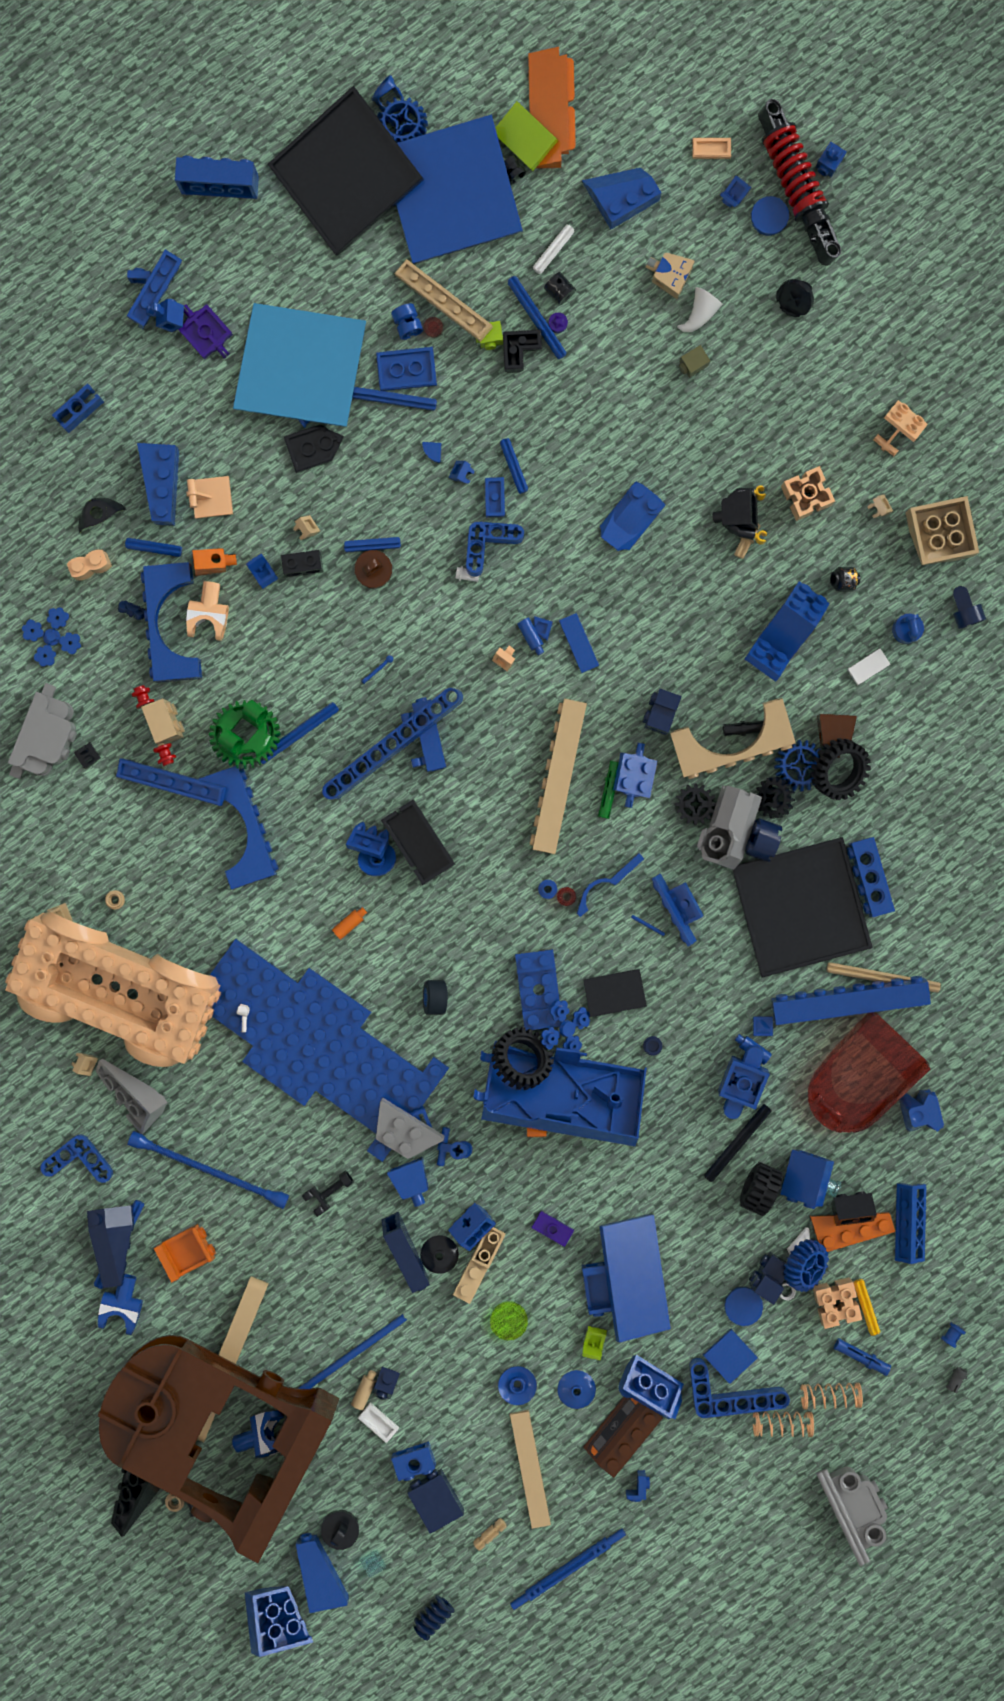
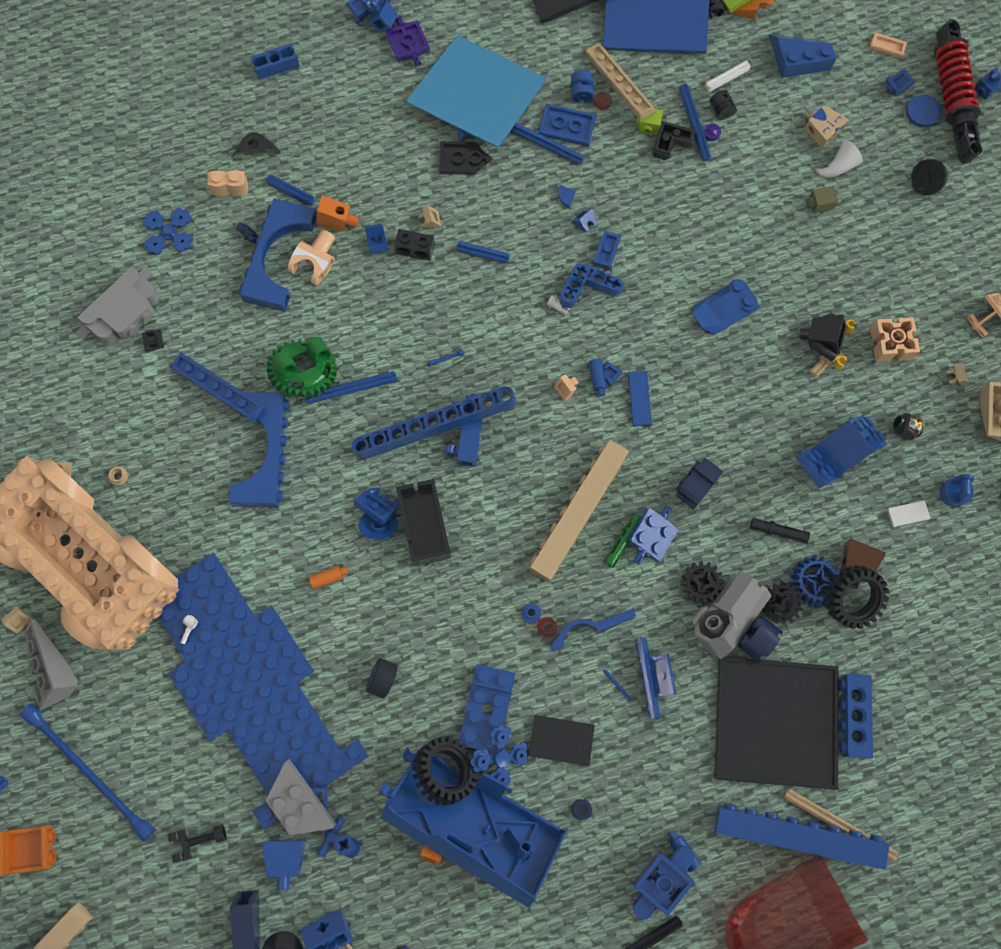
camera: 15 degrees right, 15 degrees down
(160, 477) = (320, 137): blue wedge -> none
(162, 723) = (231, 332): tan brick -> none
(210, 497) = (355, 165): light nougat plate -> none
(373, 569) = (476, 272): reddish brown tile -> none
(514, 465) = (633, 233): blue axle -> none
(762, 1026) = (701, 830): blue tile -> none
(774, 734) = (801, 541): tan arch -> none

